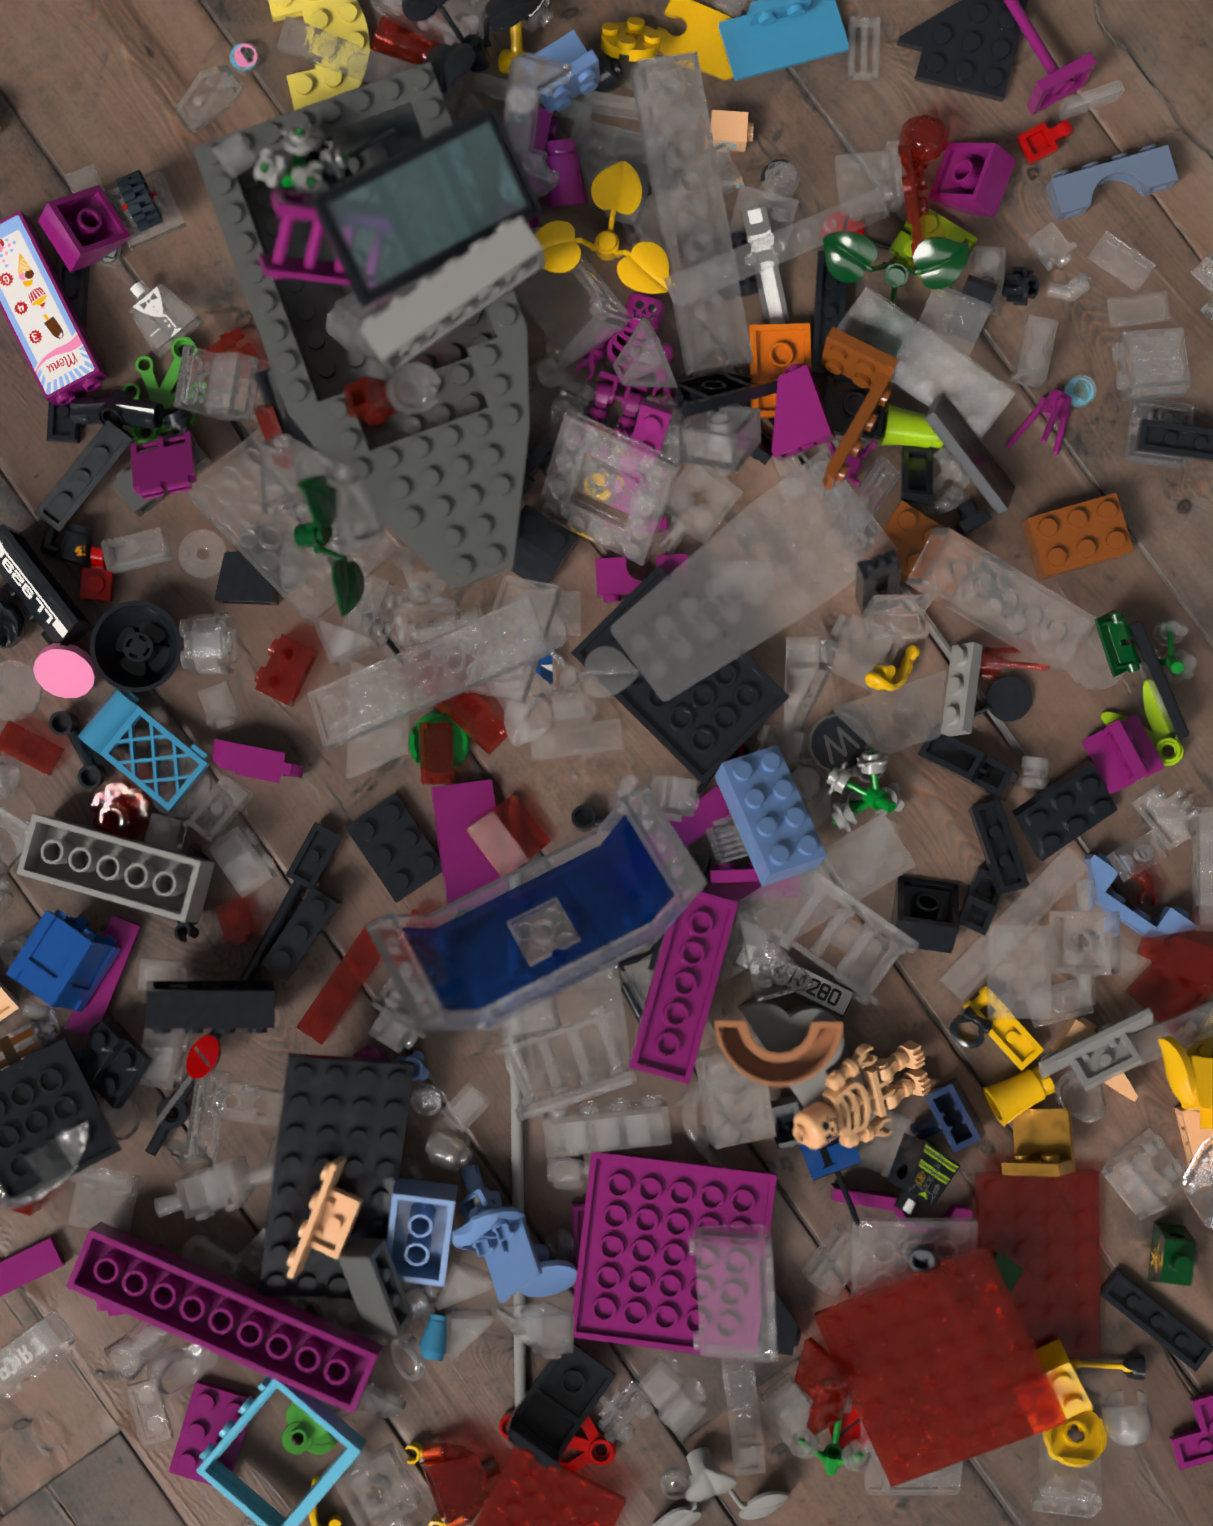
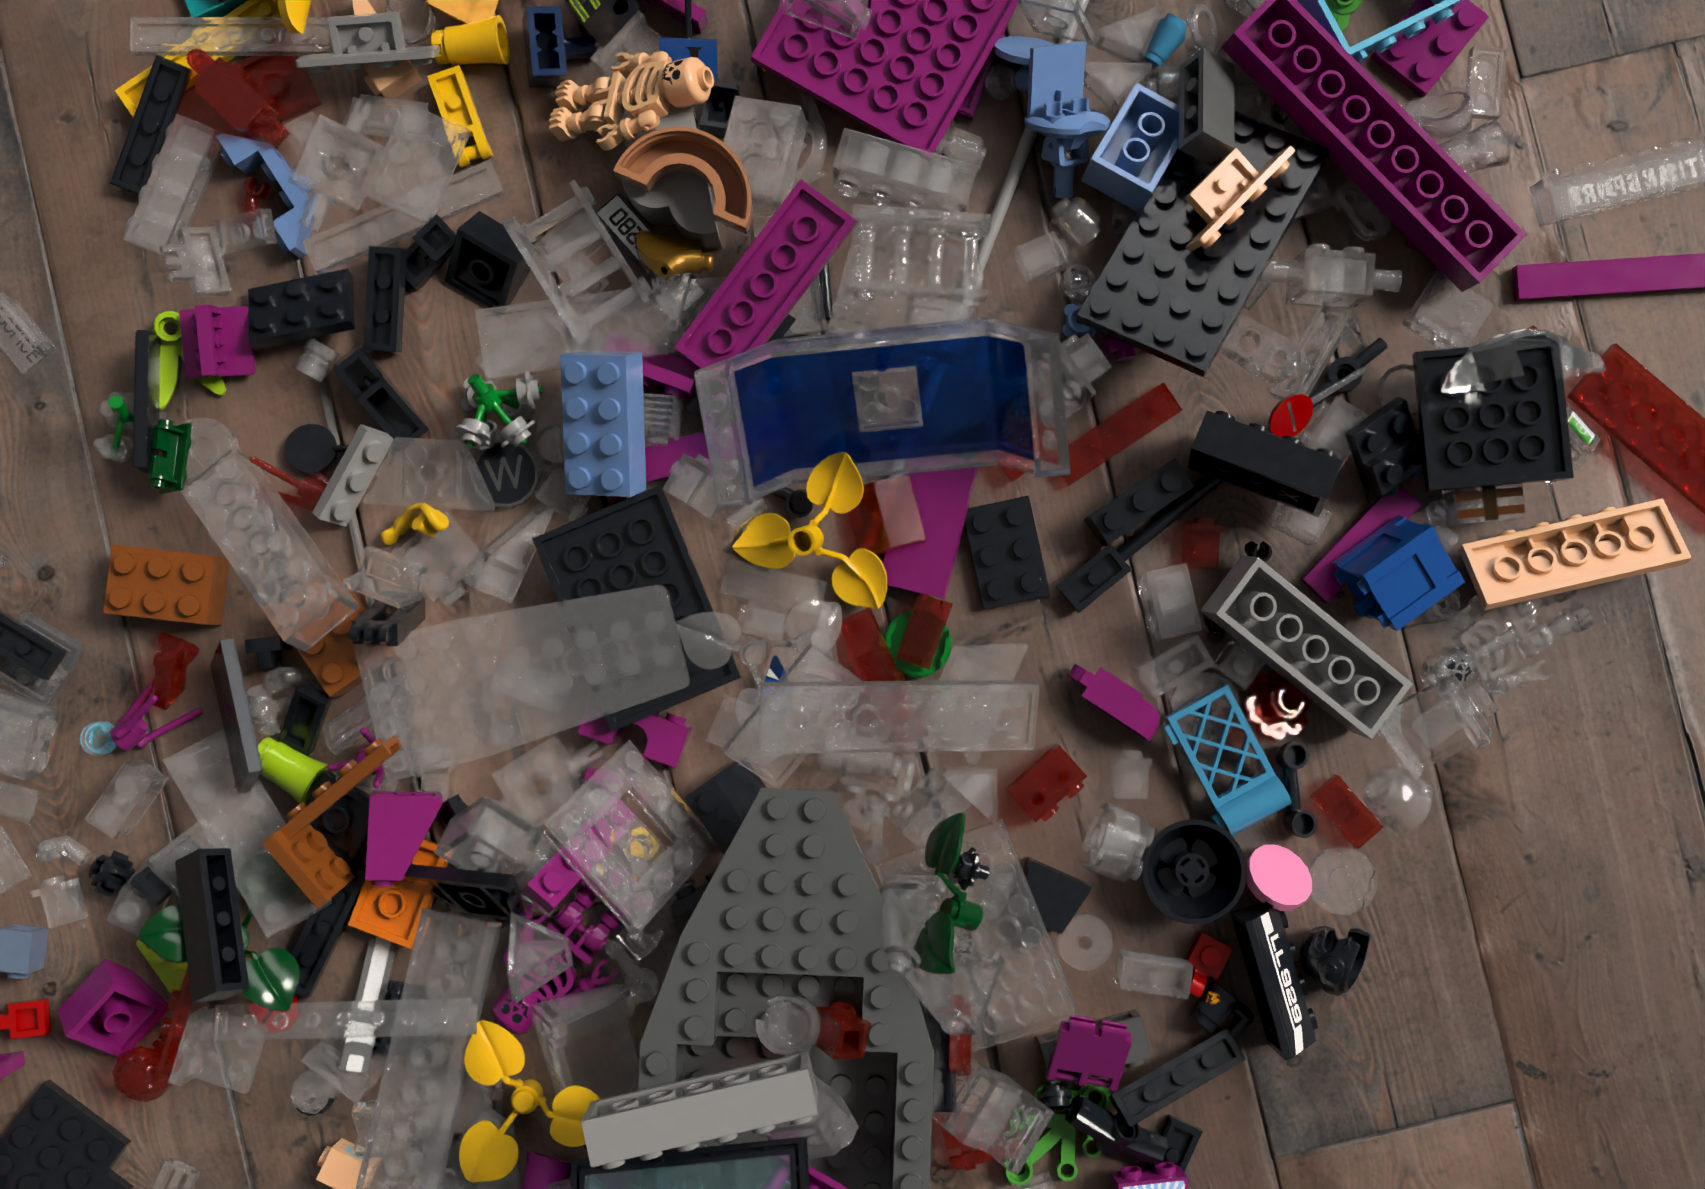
camera: 160 degrees left, 0 degrees up
(319, 573) = (969, 869): none -> black plant
(557, 841) = (771, 544): none -> yellow plant
(771, 978) = (672, 256): none -> pearl gold arm
(912, 279) = (211, 924): none -> black brick
(970, 1015) = (487, 140): black piece -> none
(1042, 472) = (171, 668): none -> clear red plate

